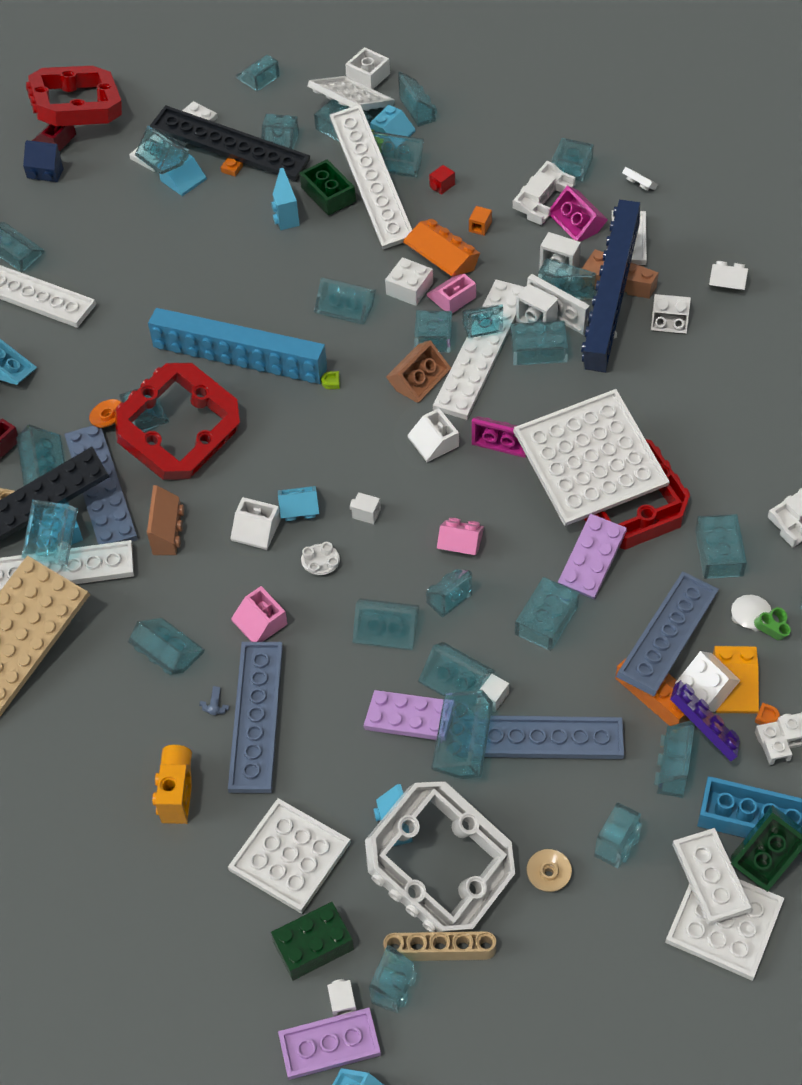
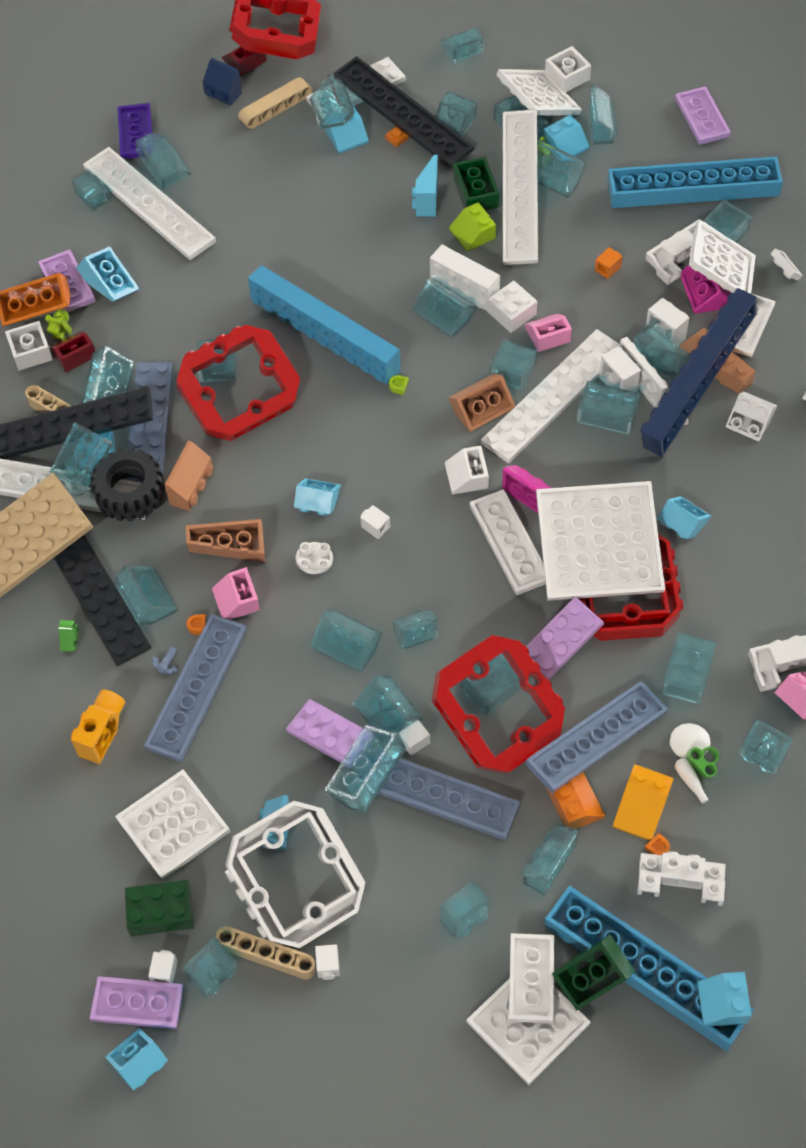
camera: 20 degrees right, 5 degrees up
(101, 168) = (274, 103): none -> tan beam
(104, 413) = (174, 355): orange dish -> none
(104, 708) = (68, 635): none -> bright green piece
(110, 565) = (120, 466): none -> black tyre
(124, 667) = (101, 602): none -> black plate
(229, 567) = (228, 539): none -> nougat wedge
(229, 657) = (196, 624): none -> orange tile
(255, 523) = (269, 504): white slope -> none
(341, 224) = (473, 227): none -> lime slope
(354, 266) = (464, 276): none -> white brick
(442, 179) = (590, 208): red brick -> none
(442, 248) = (557, 282): orange slope -> none
(460, 536) = (449, 577): bright pink slope -> none
(483, 320) = (561, 369): clear light blue slope -> none
(502, 487) = (509, 541): none -> white plate
(506, 76) = (702, 115): none -> lavender plate
(506, 932) = (327, 961): none -> white brick
(525, 132) = (694, 182): none -> dark azure brick
(550, 861) = (391, 910): tan dish -> none
(584, 187) = (721, 259): none -> white plate
(597, 609) = (519, 659): none -> red panel
(652, 417) = (683, 517): none -> medium azure slope
(709, 679) = (612, 796): white brick -> none
(709, 724) = (590, 832): dark purple plate -> none
(768, 644) = (689, 776): none -> white piece

